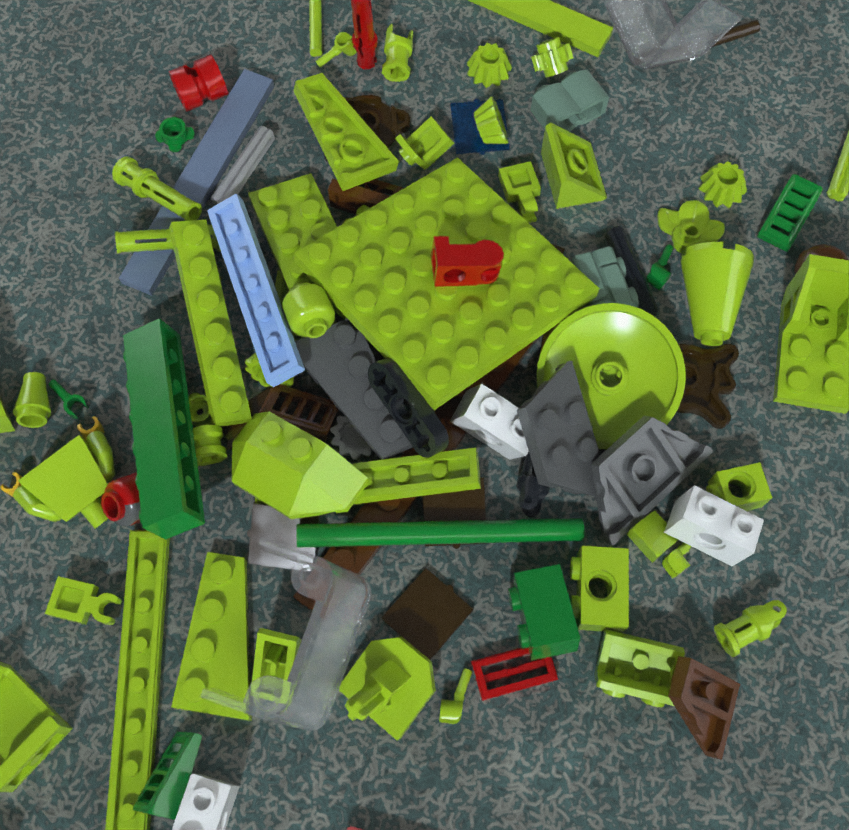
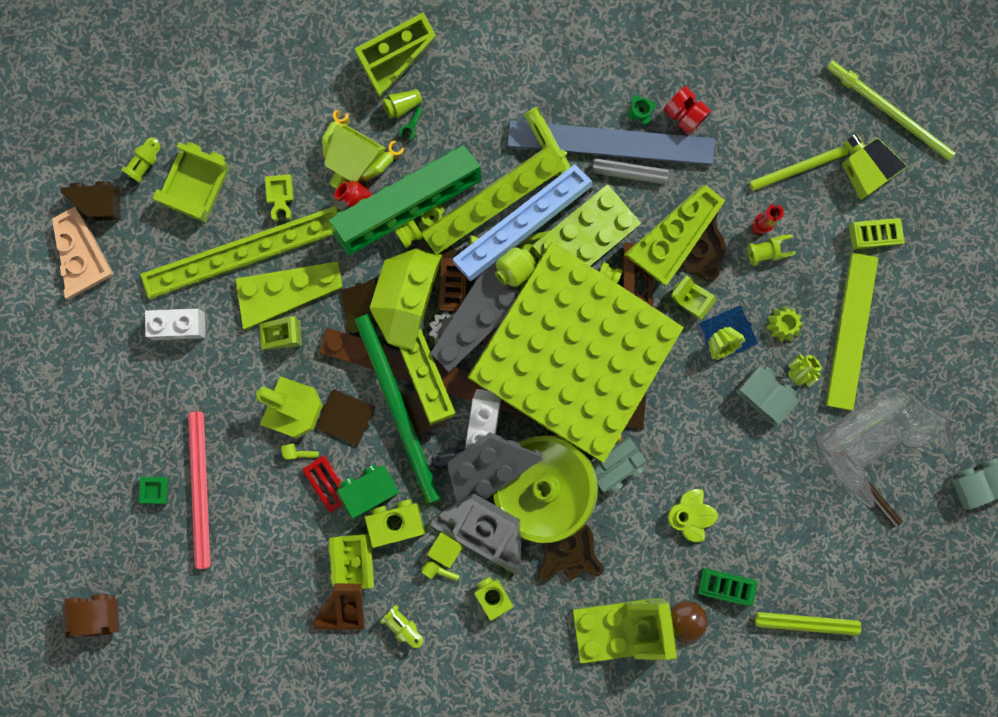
camera: 70 degrees right, 15 degrees up
(147, 185) = (588, 109): lime pin -> none
(170, 777) = (191, 295): green slope -> none
(325, 649) = (327, 360): clear windscreen -> none
(343, 44) = (760, 203): lime hand -> none
(387, 377) = (465, 359): black beam -> none
(465, 263) = (579, 363): red leg -> none
(521, 185) = (682, 380): lime plate -> none
(570, 168) = (711, 416): lime slope -> none
(634, 277) = (638, 483): black axle -> none
(658, 274) = (642, 502): green hand -> none
(714, 526) = (459, 587): white brick -> none
(715, 288) = (635, 546): lime cone -> none
(723, 184) = (737, 532): lime piece -> none

